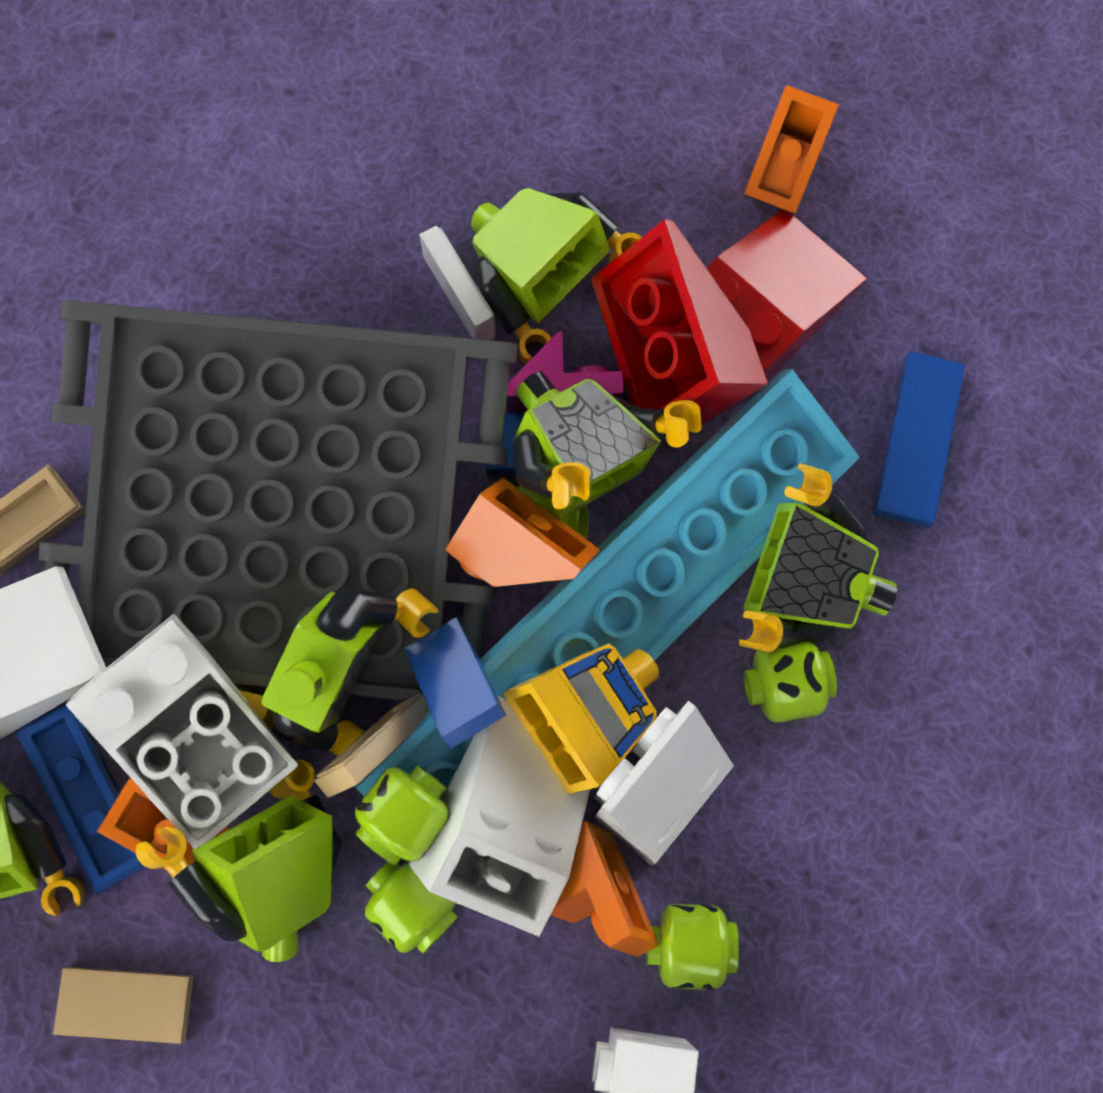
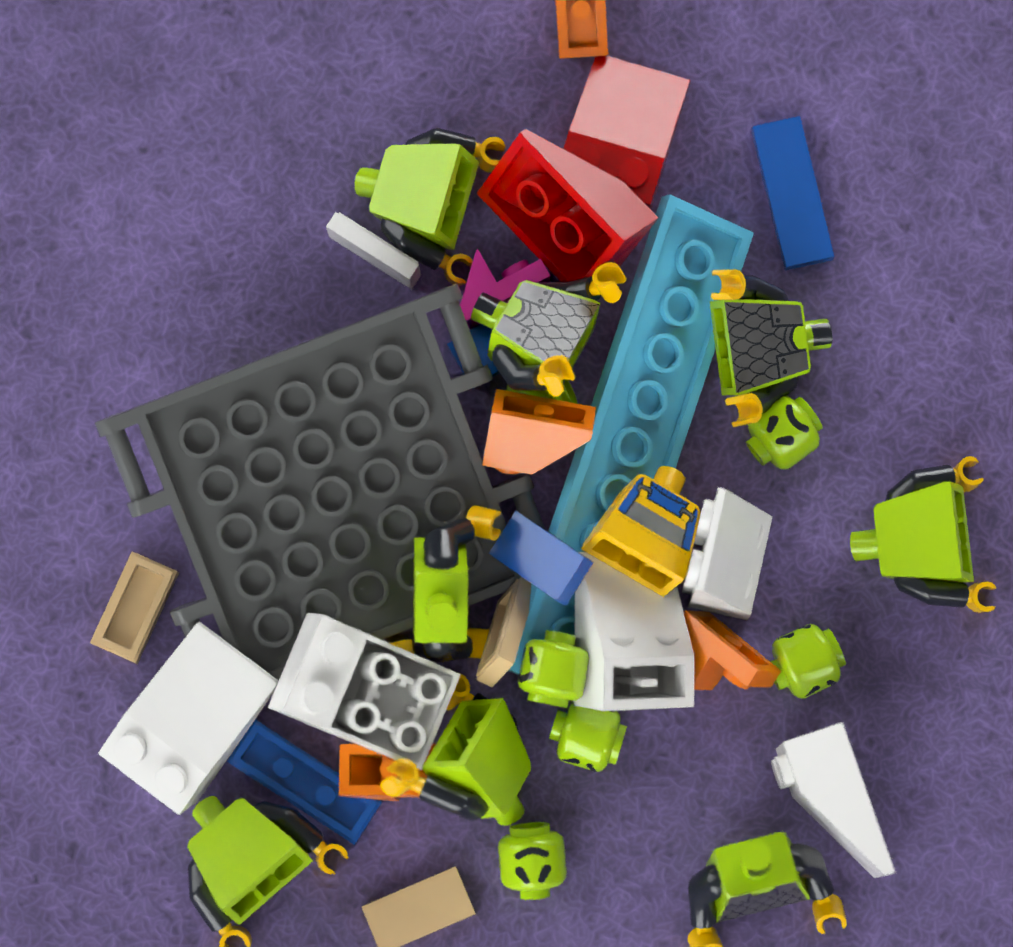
camera: 20 degrees left, 5 degrees up
(273, 1015) = (532, 859): none -> lime head
(894, 877) = (925, 537): none -> lime torso

